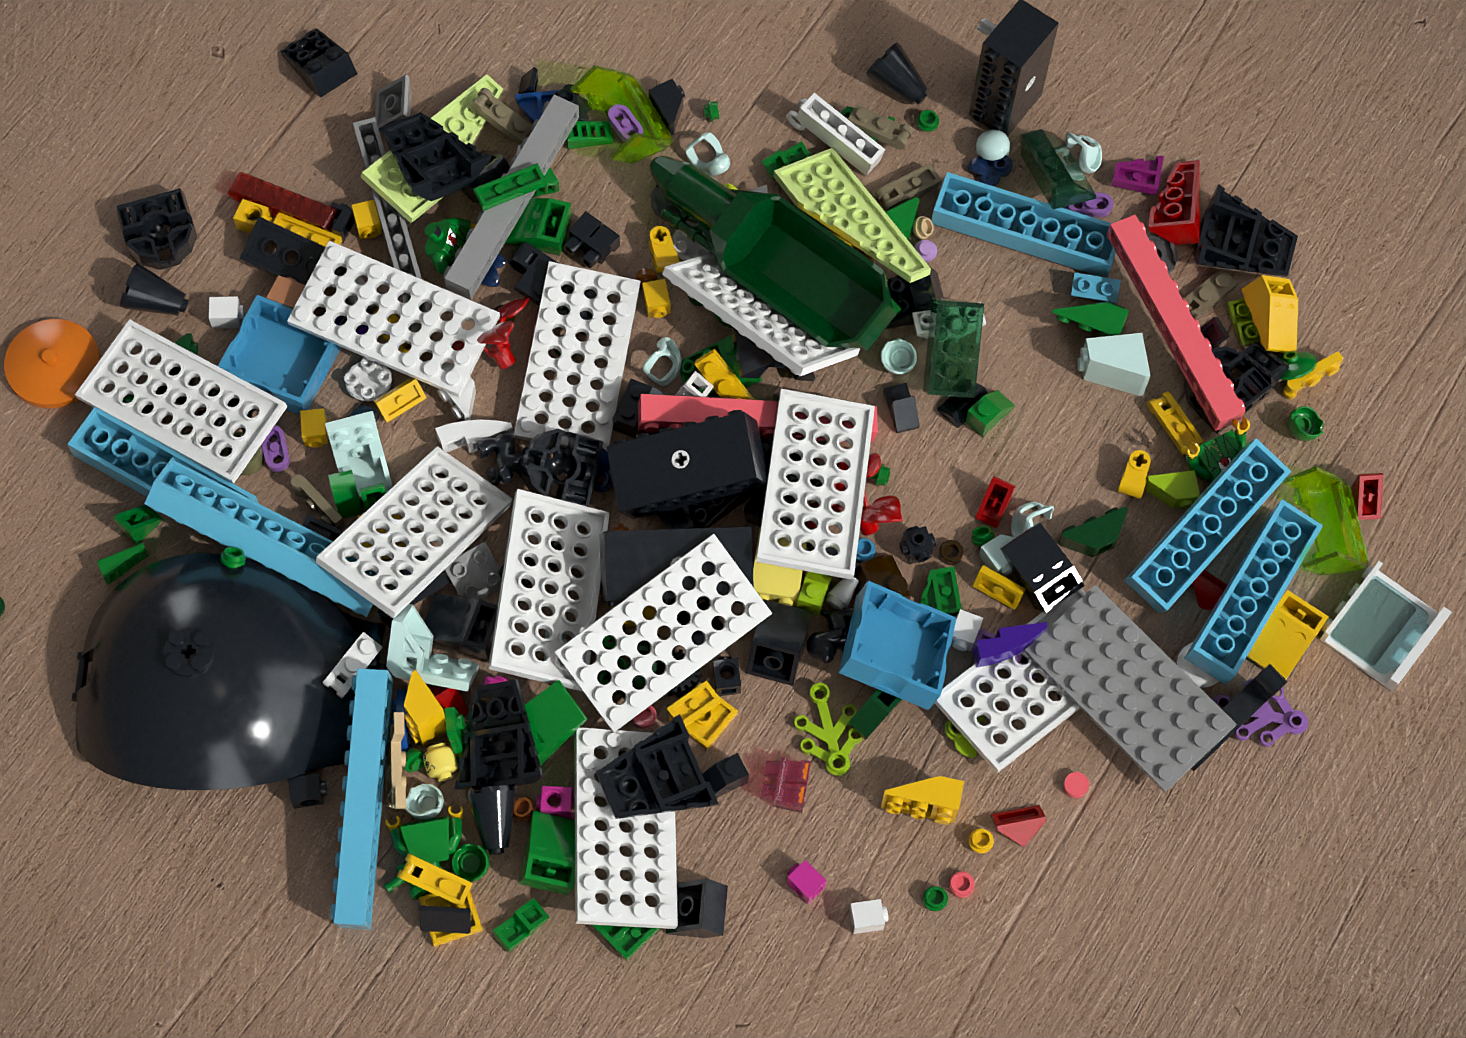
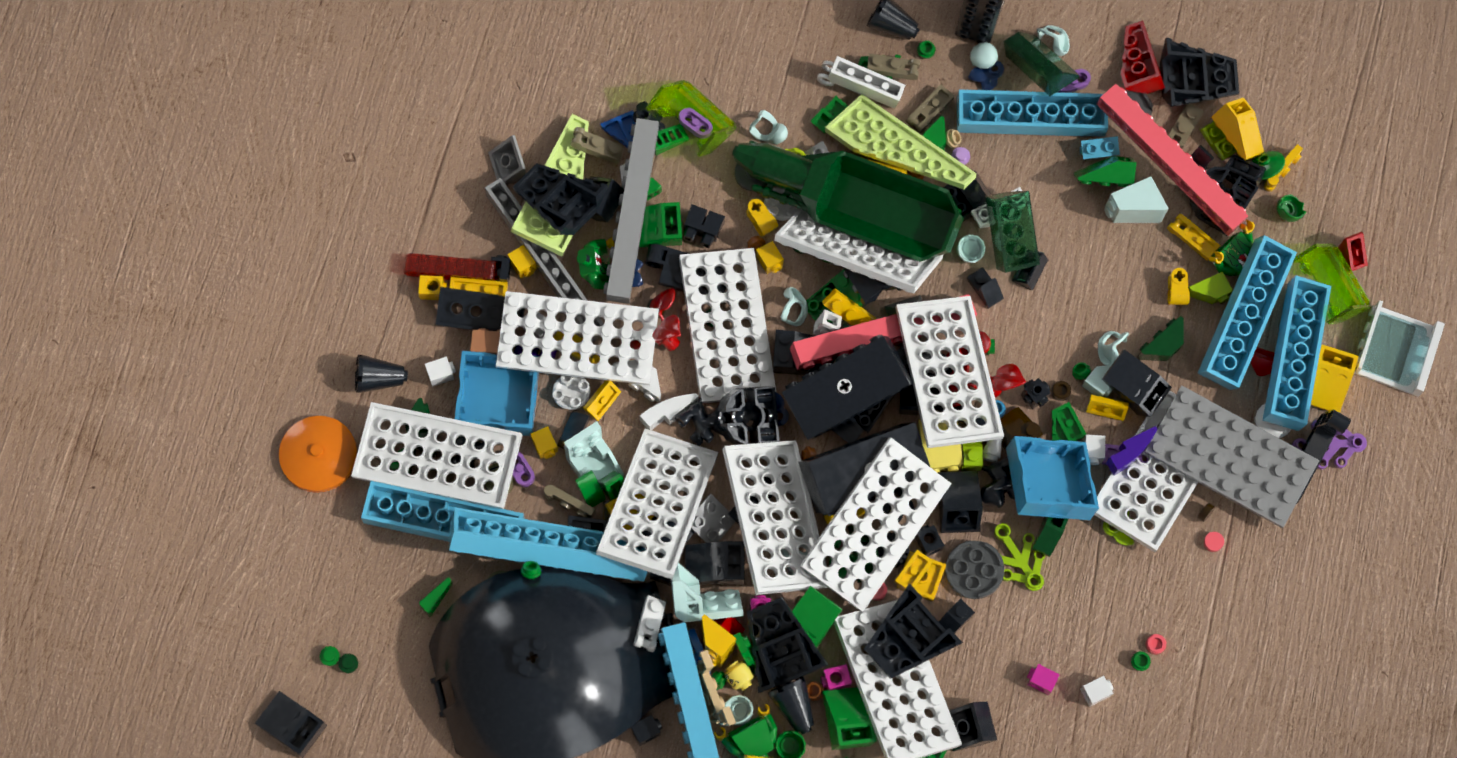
camera: 20 degrees left, 5 degrees up
(137, 523) = (436, 561): green slope -> none
(158, 211) = (358, 340): black connector -> none
(319, 62) = (435, 142): black slope -> none
(510, 187) = (630, 204): green tile -> none
(529, 82) = (606, 110): black slope -> none
(668, 103) = (721, 94): black slope -> none
(711, 110) = (757, 90): green plate -> none
(770, 727) = (974, 569): none -> dark grey tile
(790, 786) = (1005, 607): clear pink hips -> none
(929, 798) = (1119, 586): yellow slope -> none
(981, 841) = (1159, 606): yellow plate -> none
(988, 412) = (1052, 271): green slope -> none
(995, 501) = (1082, 341): red slope -> none
(1020, 823) = (1183, 583): slope -> none
(1078, 746) = (1206, 512): none -> dark brown tile
(1138, 175) = (1101, 46): magenta wing -> none

